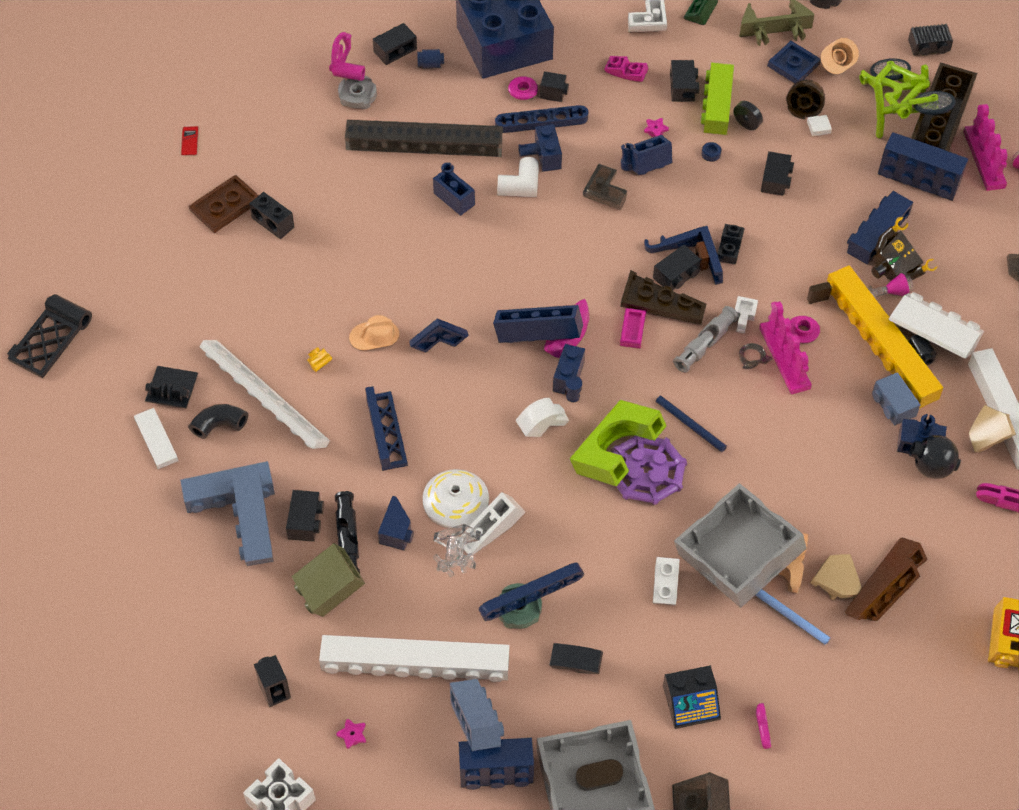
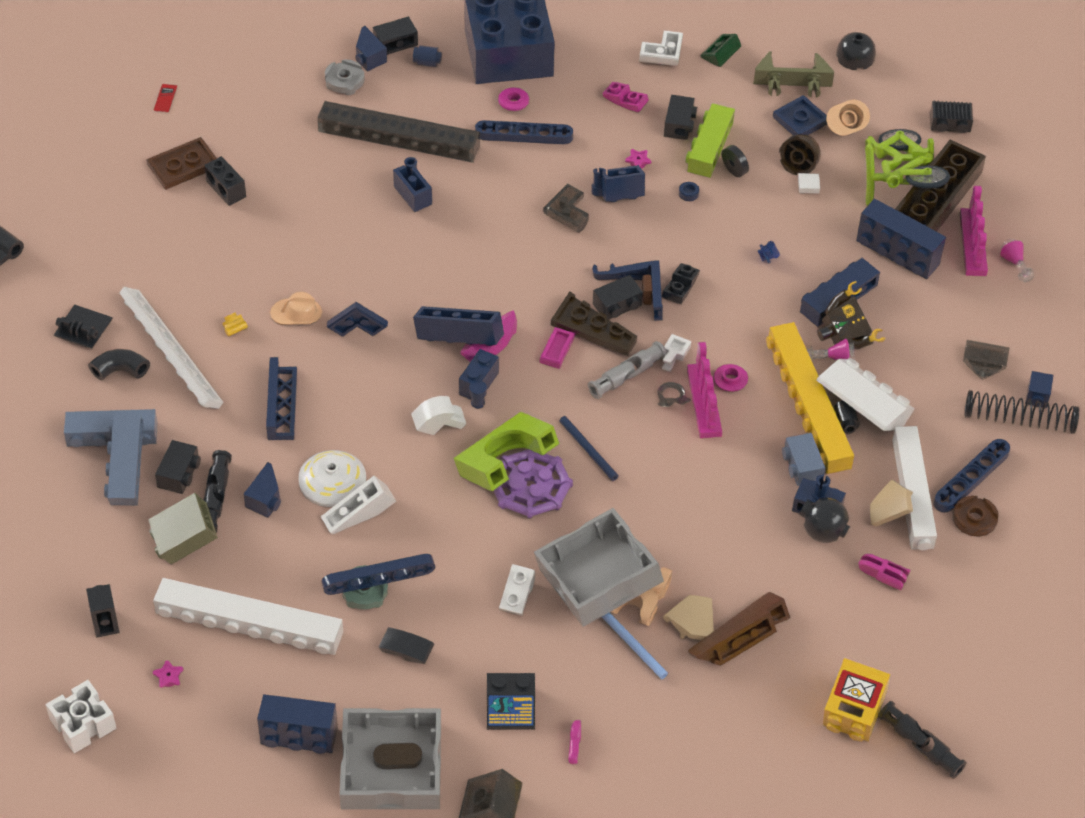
camera: 10 degrees right, 5 degrees down
(156, 438) = (54, 371): white tile -> none
(338, 66) = (335, 51): dark pink piece -> none
(376, 61) = (369, 50): none -> dark blue slope
(454, 540) = (316, 514): clear piece -> none
(476, 714) = (289, 674): sand blue brick -> none
(522, 185) = (485, 193): white brick -> none
(546, 148) = (518, 159): dark blue brick -> none
(553, 86) = (544, 102): black brick -> none
(776, 173) = (748, 222): black brick -> none
(802, 199) = (768, 251): none -> clear blue plate
(819, 292) = (756, 344): dark brown tile -> none

